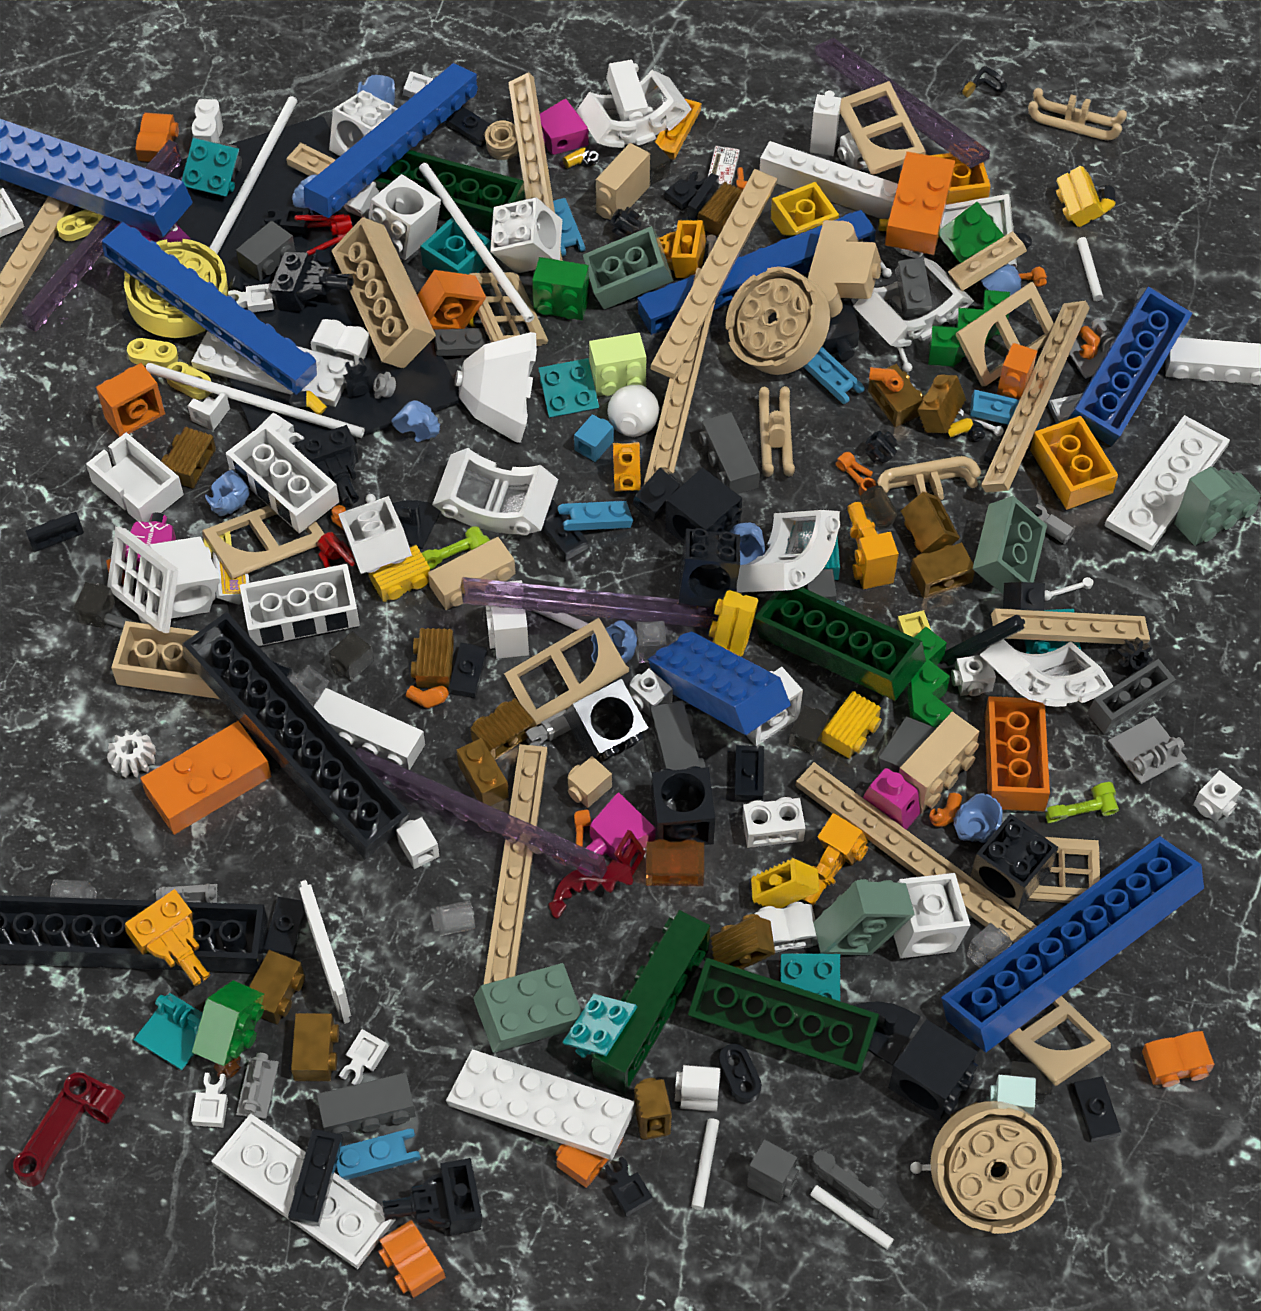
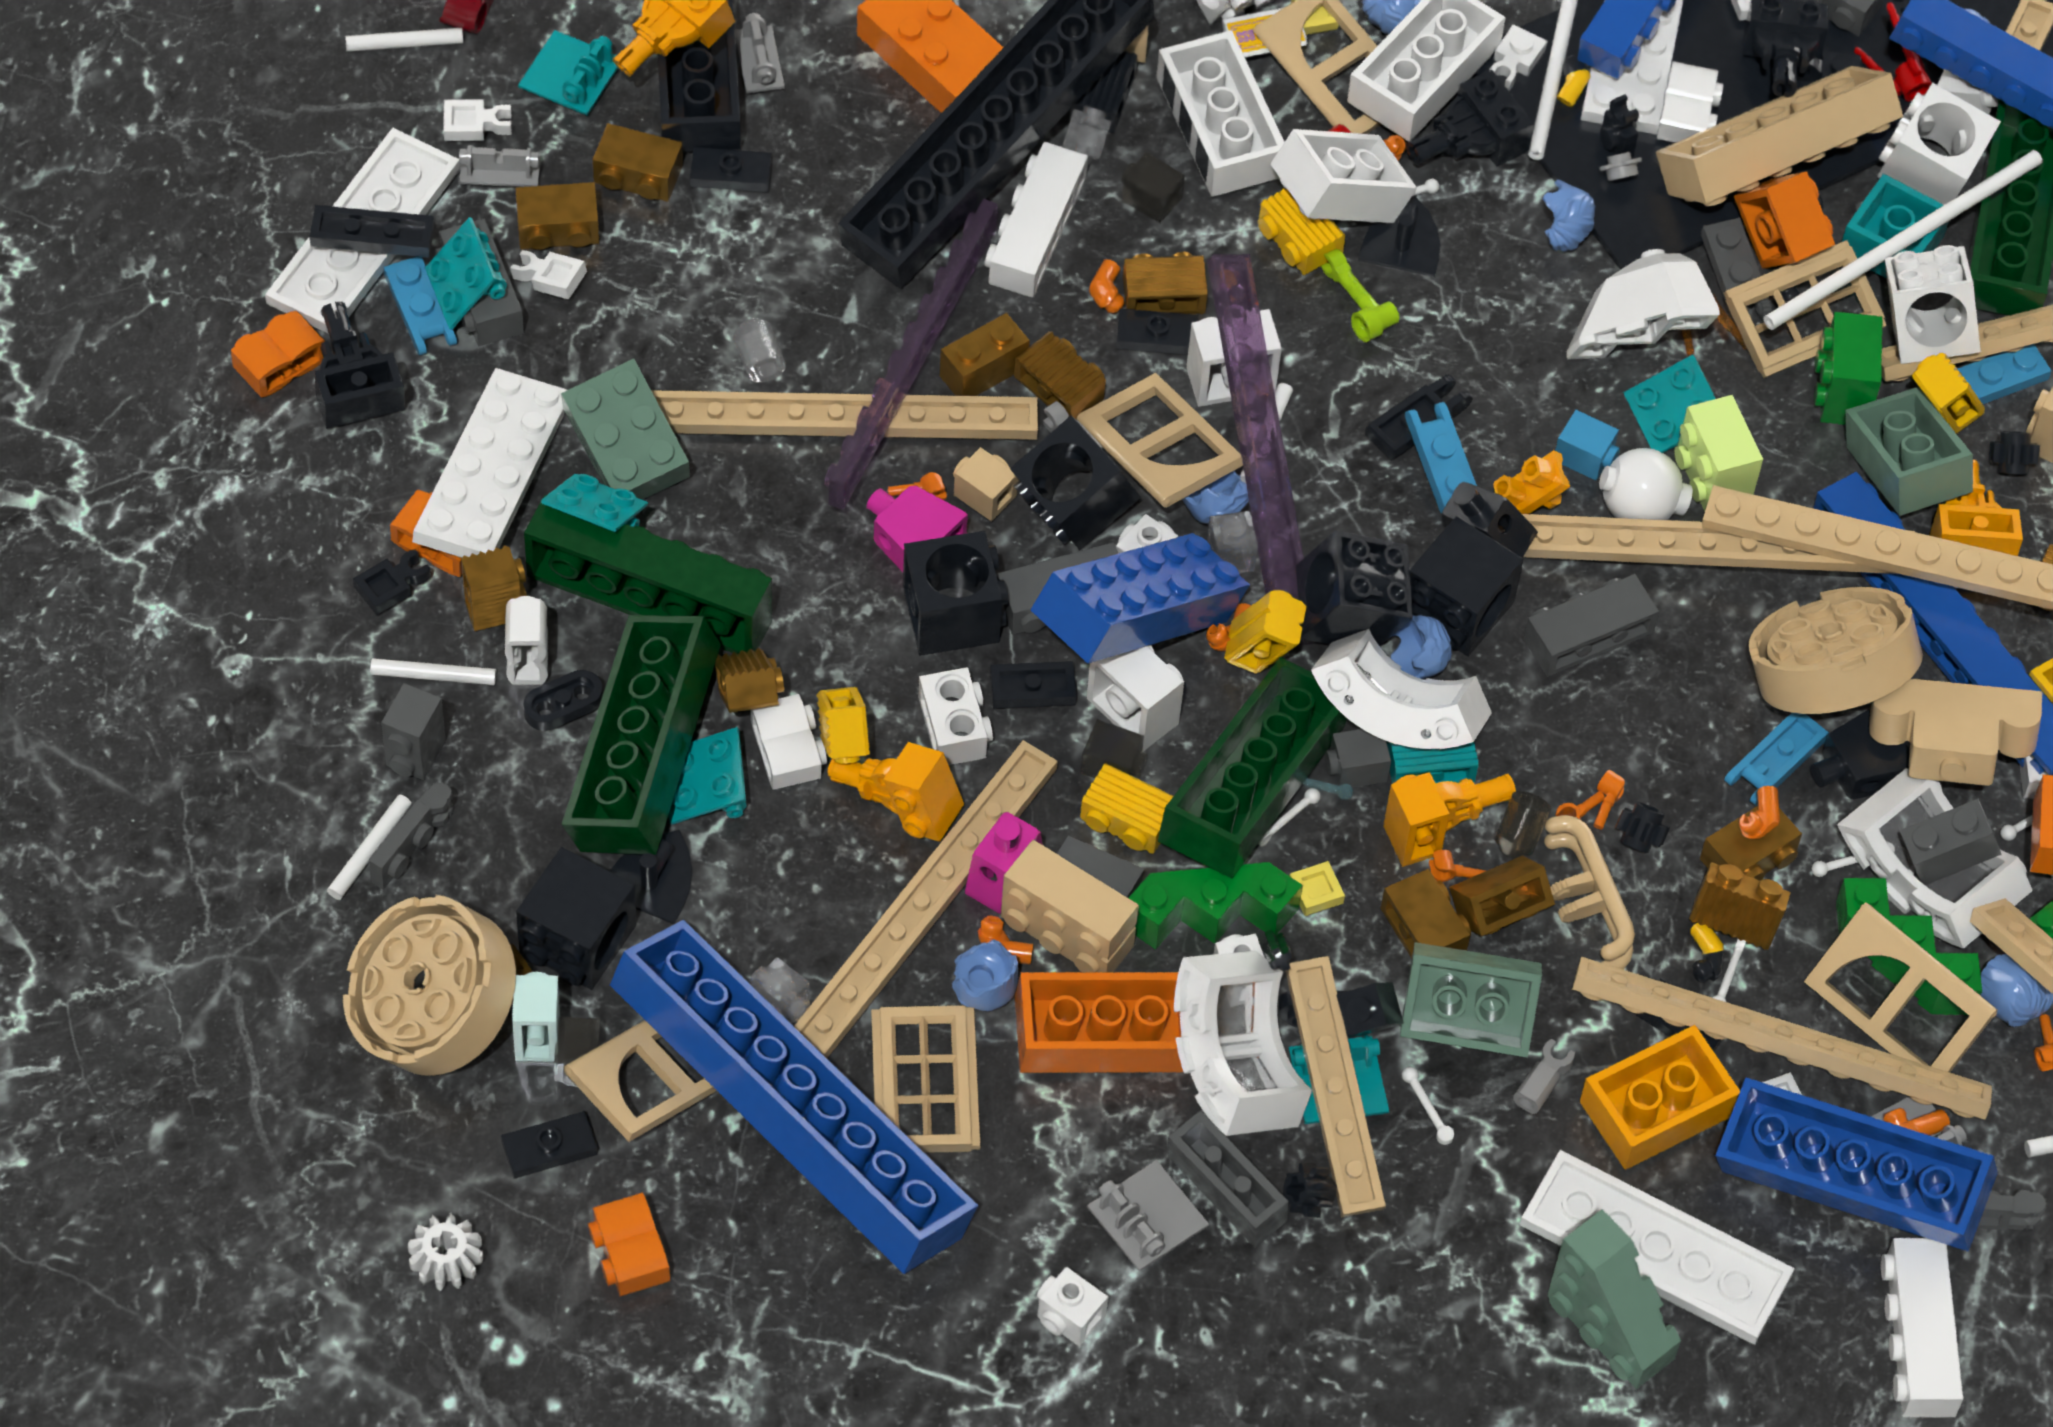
camera: 80 degrees right, 0 degrees up
(119, 1152) = (404, 39): none -> white bar
(228, 1023) = (567, 105): green brick -> none
(229, 1069) = (526, 131): reddish brown plate -> none
(325, 951) = (614, 221): white piece -> none
(369, 1111) = (464, 273): none -> teal hinge
(417, 842) = (868, 296): white brick -> none
(487, 562) = (1315, 315): tan brick -> none
(494, 497) = (1448, 323): white window -> none
(586, 239) = (1948, 391): none -> yellow brick
(616, 871) = (847, 523): dark red piece -> none
(675, 863) = (872, 600): clear orange brick -> none
(775, 431) = (1642, 688): tan piece -> none
(863, 917) = (788, 805): sand green brick -> none
(902, 551) = (1444, 868): none -> orange hand
(938, 918) = (809, 897): white brick -> none
(993, 407) = (1753, 987): dark azure hinge -> none
(1014, 862) = (905, 1004): black brick -> none
(1016, 371) = (1817, 999): orange brick -> none
(1103, 799) = (1046, 1150): lime brick -> none
(1176, 1183) = (429, 1249): none -> white gear

